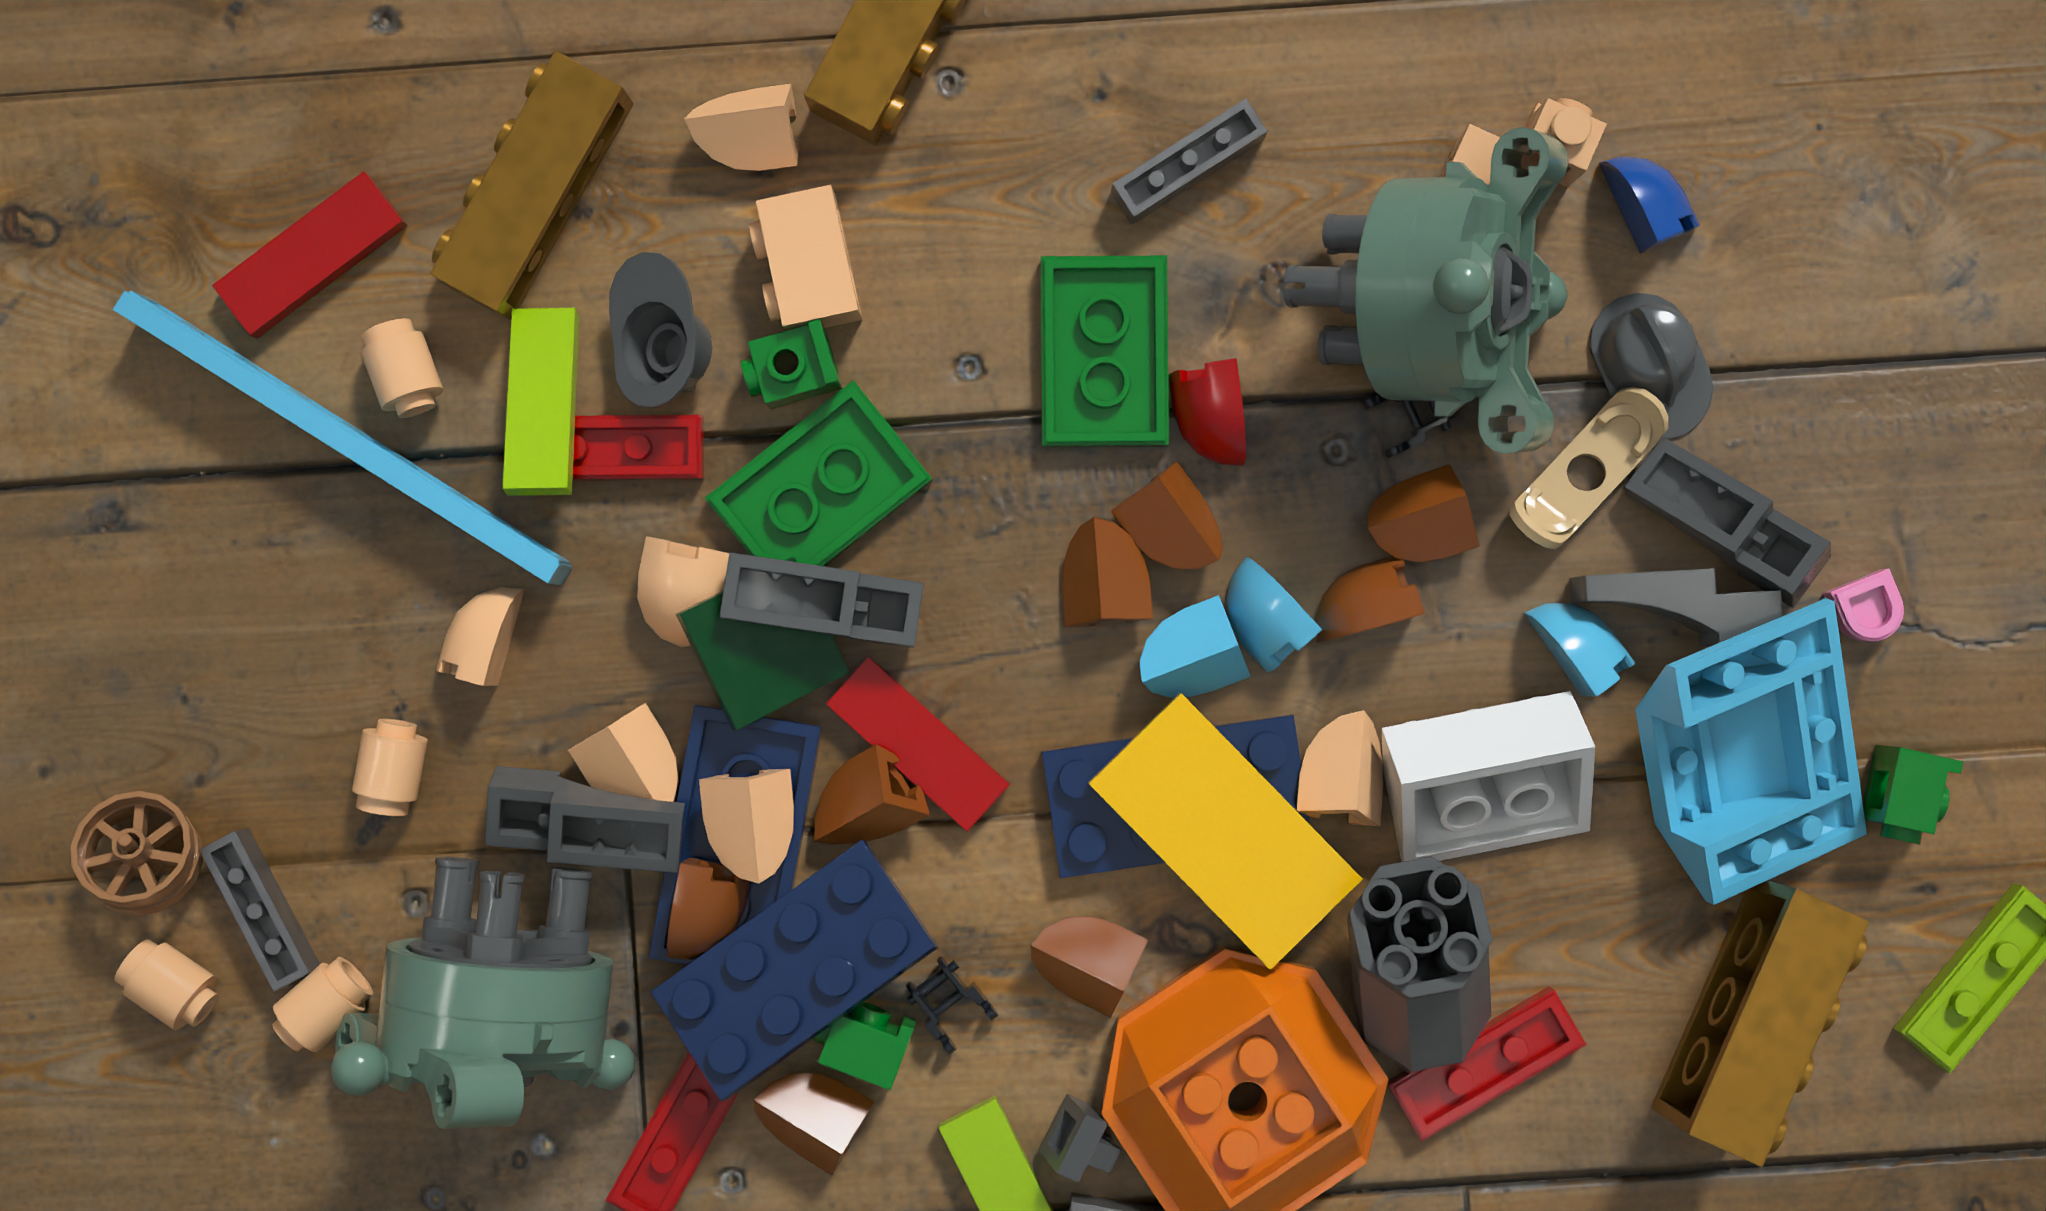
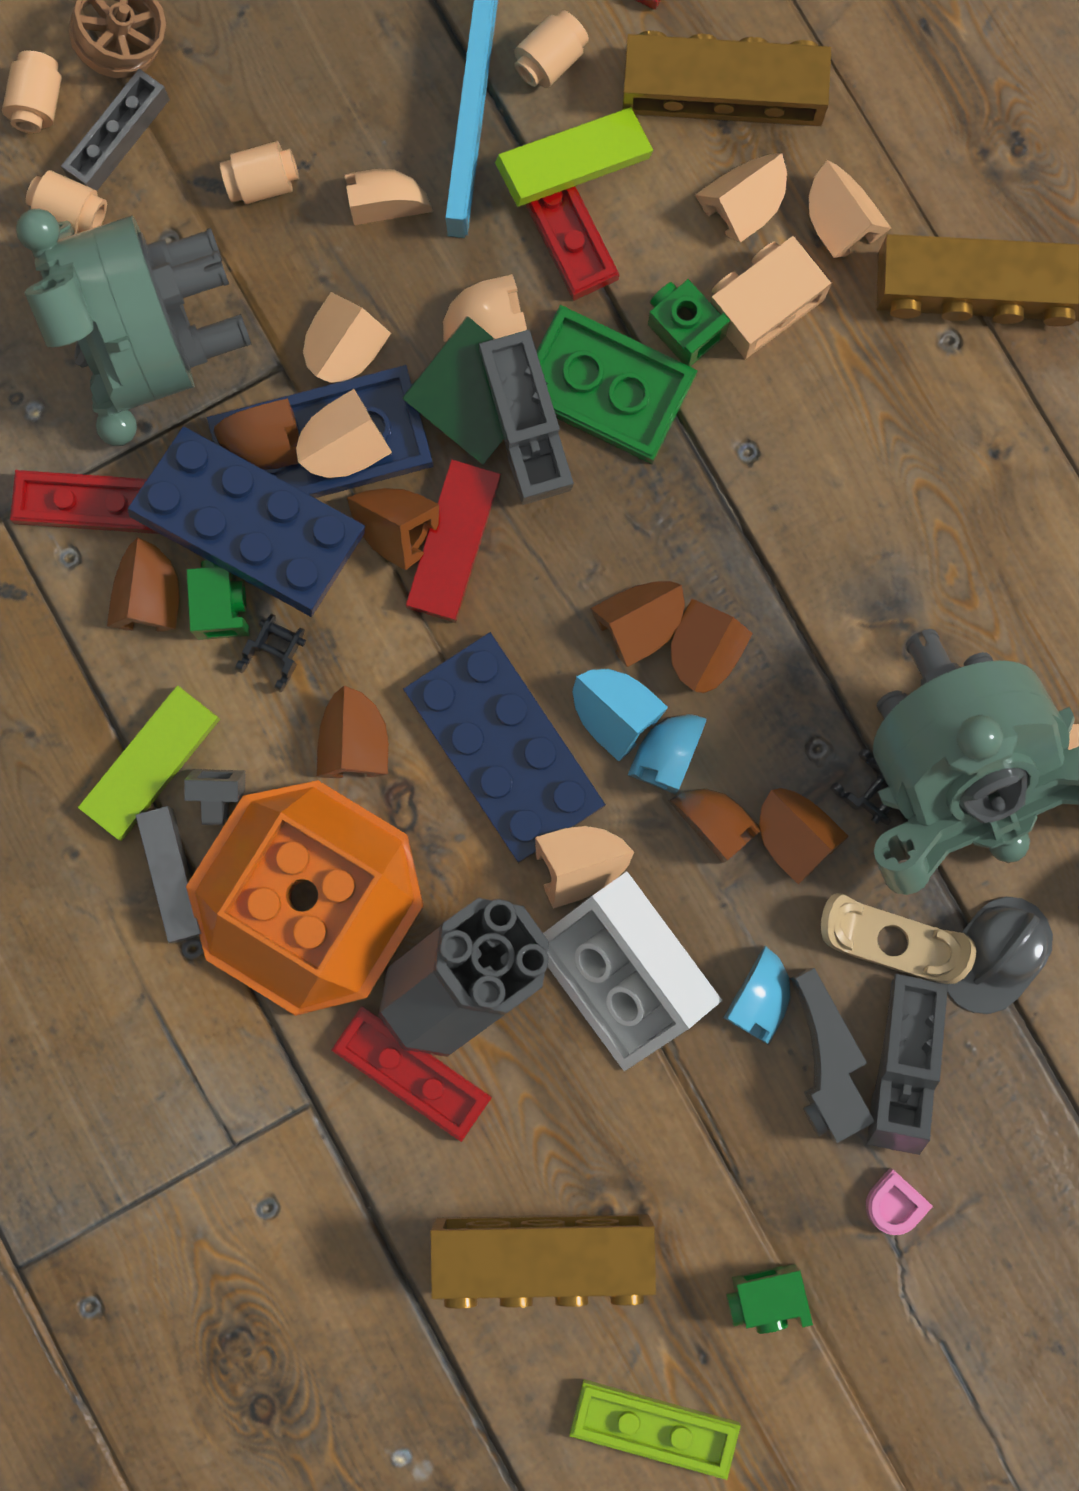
camera: 65 degrees right, 5 degrees down
(581, 822) = (283, 321): dark grey slope -> none
(654, 331) = (660, 214): dark grey piece -> none
(679, 221) = (747, 195): none -> light nougat brick
(1104, 351) = (807, 542): green tile -> none
(1188, 161) = (978, 537): flat silver piece -> none
(1211, 411) = (801, 639): red brick -> none
(1225, 831) = (495, 788): yellow tile -> none
(1754, 753) = (744, 1160): medium azure slope -> none

